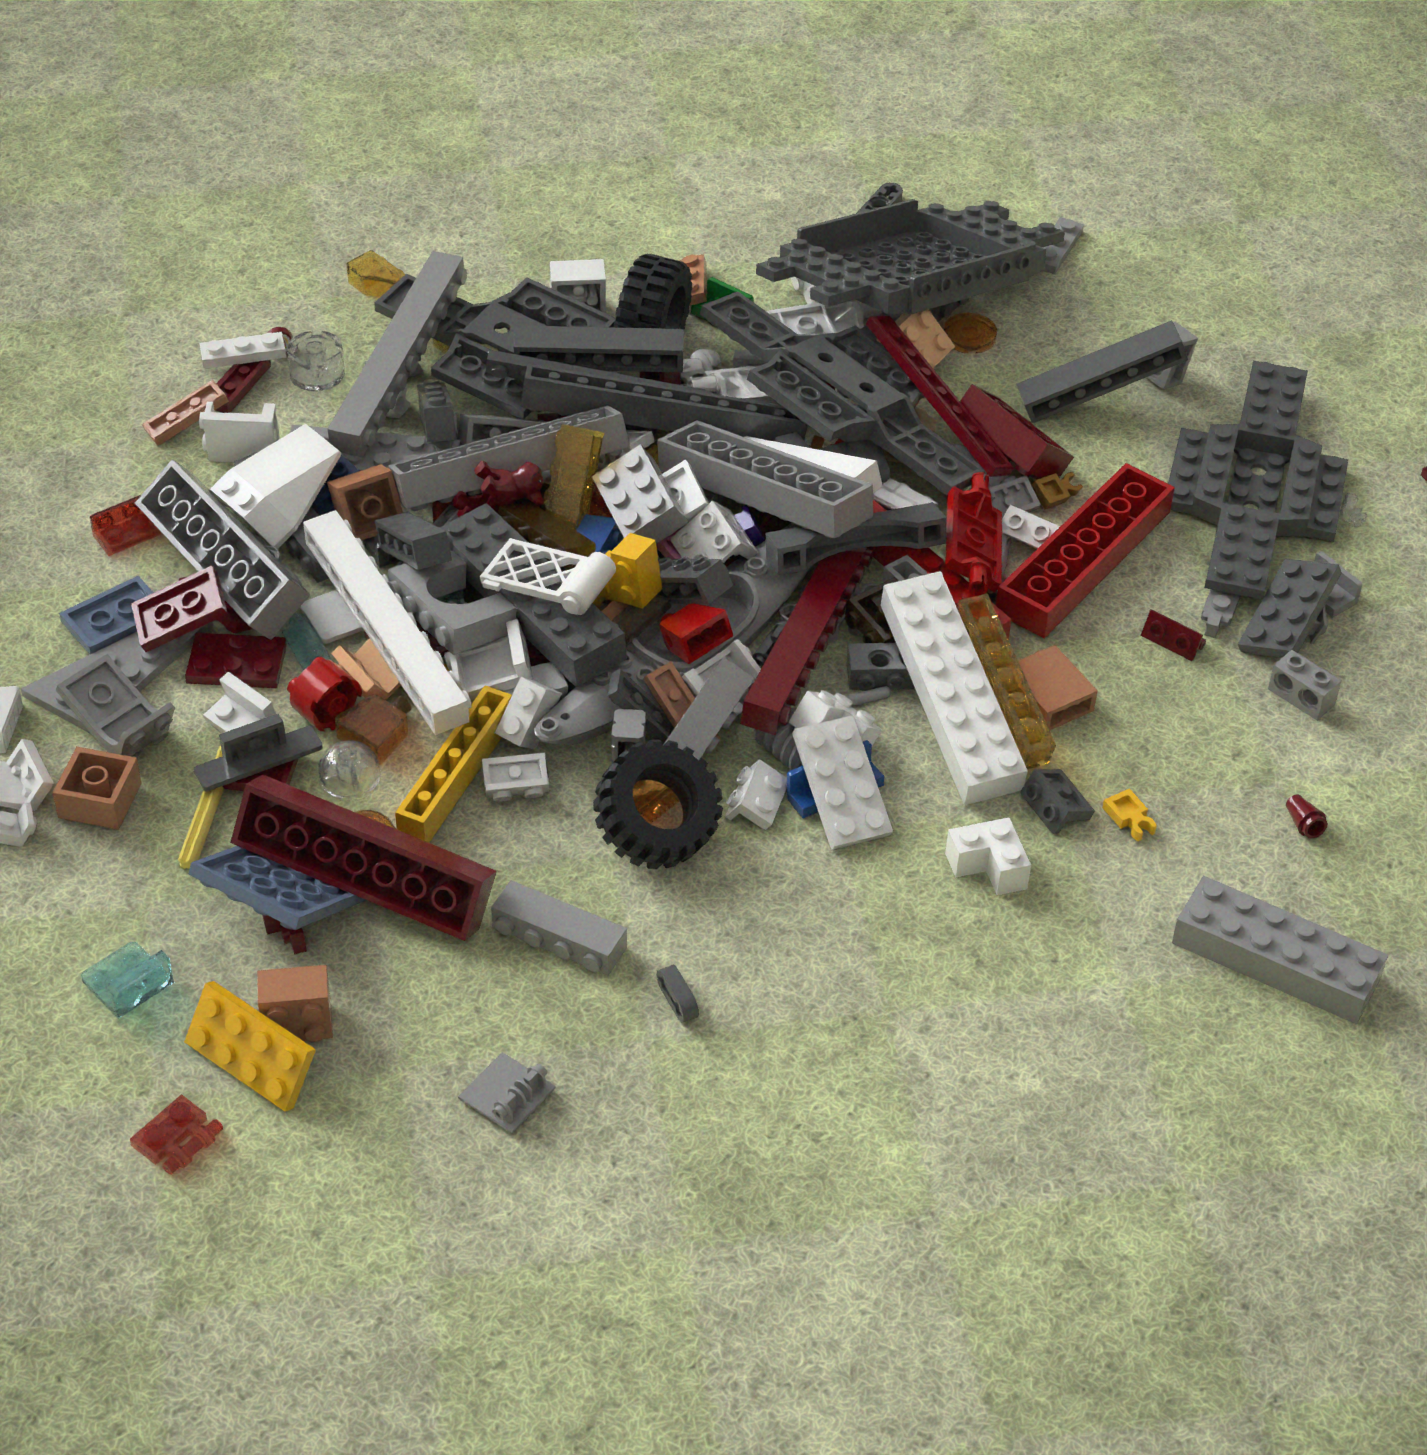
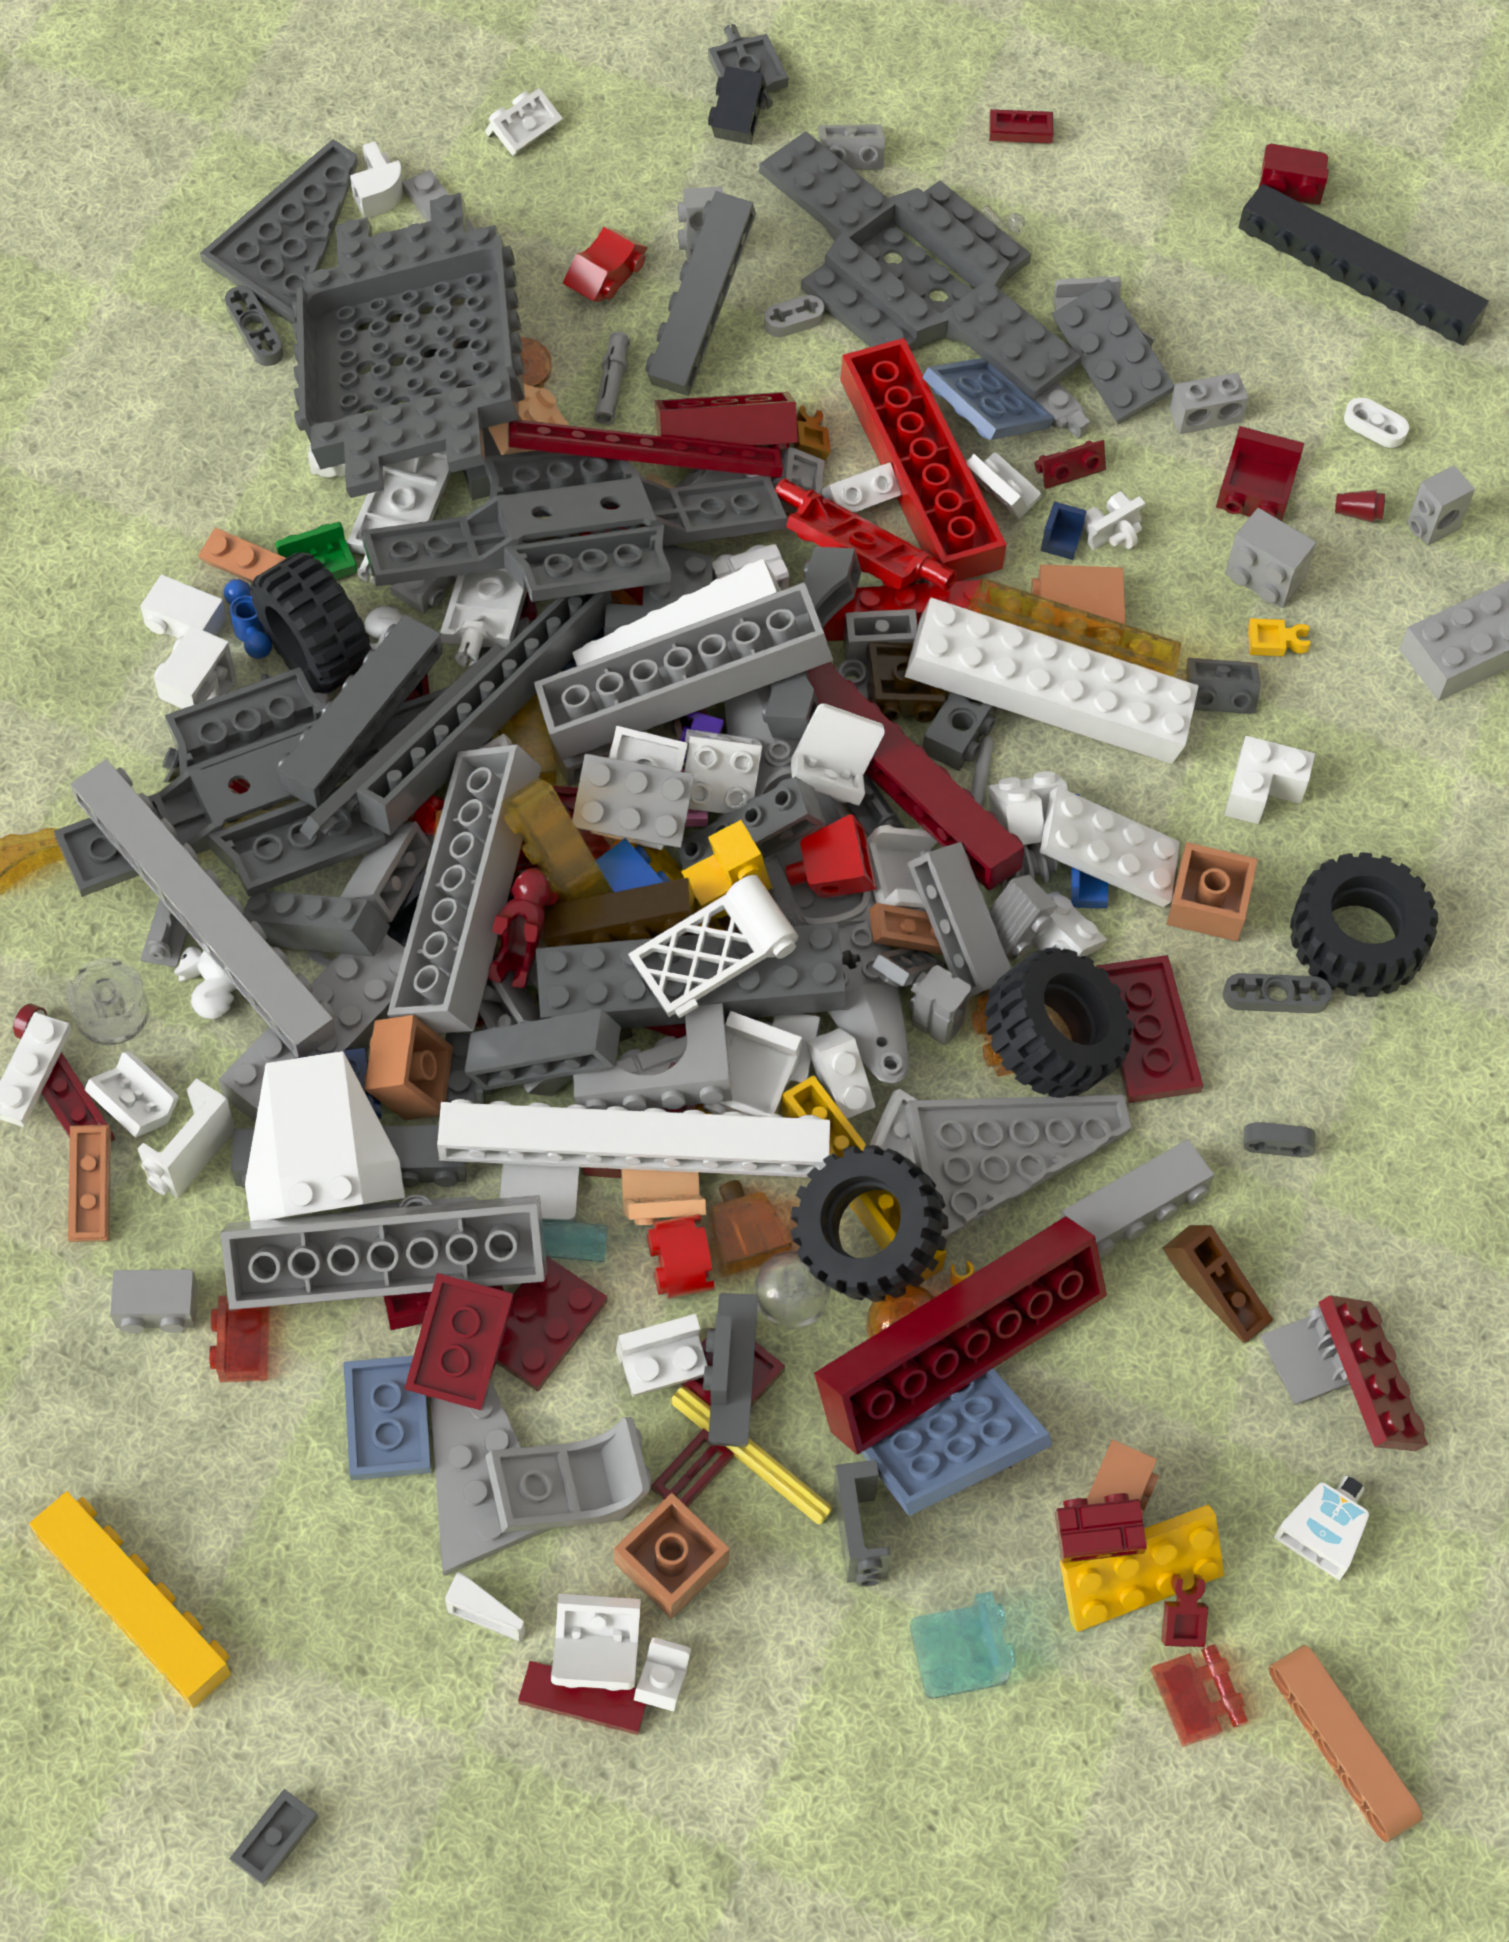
camera: 60 degrees left, 15 degrees up
(122, 473) = (154, 1300): none -> light grey brick
(166, 868) = (852, 1485): none -> dark grey panel
(175, 785) = (726, 1456): none -> dark red tile
(186, 1238) = (1345, 1743): none -> nougat beam
(229, 1093) = (1185, 1618): none -> dark red plate
(241, 978) = (1100, 1528): none -> dark red brick
(257, 393) = (133, 1095): none -> white bracket
(363, 1153) = (1327, 1526): none -> white torso
(403, 758) = (830, 1195): none -> black tyre
(508, 1124) = (1373, 1373): none -> dark red plate
(525, 1003) = (1217, 1280): none -> reddish brown slope
(534, 820) = (1003, 1147): none -> light grey wing
(620, 262) = (175, 606): none -> white brick
(713, 878) = (1161, 1049): none -> dark red plate
(737, 753) = (1021, 914): none -> light grey brick
(771, 589) = (836, 753): none -> white bracket
(811, 957) = (1287, 982): none -> dark grey beam
(857, 860) = (1212, 891): none -> nougat brick
(902, 994) = (1372, 885): none -> black tyre
(971, 184) = (286, 231): none -> dark grey wing
(1013, 374) = (613, 366): none -> light grey pin
(1043, 207) = (380, 185): none -> white brick
(1088, 331) = (605, 265): none -> red brick
(1104, 651) = (1063, 530): none -> dark blue panel
(1111, 602) = (1004, 483): none -> white bracket
(1141, 679) = (1118, 526): none -> white hips
(1151, 441) = (794, 316): none -> light grey beam
(1169, 246) = (523, 122): none -> white bracket
(1172, 558) = (987, 399): none -> sand blue plate
(1188, 770) = (1270, 558): none -> light grey brick
(1270, 746) = (1259, 473): none -> dark red panel
(1293, 331) = (737, 105): none -> black brick
(1330, 405) = (855, 144): none -> light grey bracket
(1339, 328) = (750, 54): none -> dark grey plate
(1342, 853) = (1440, 505): none -> light grey brick
(1397, 800) = (1376, 422): none -> white plate

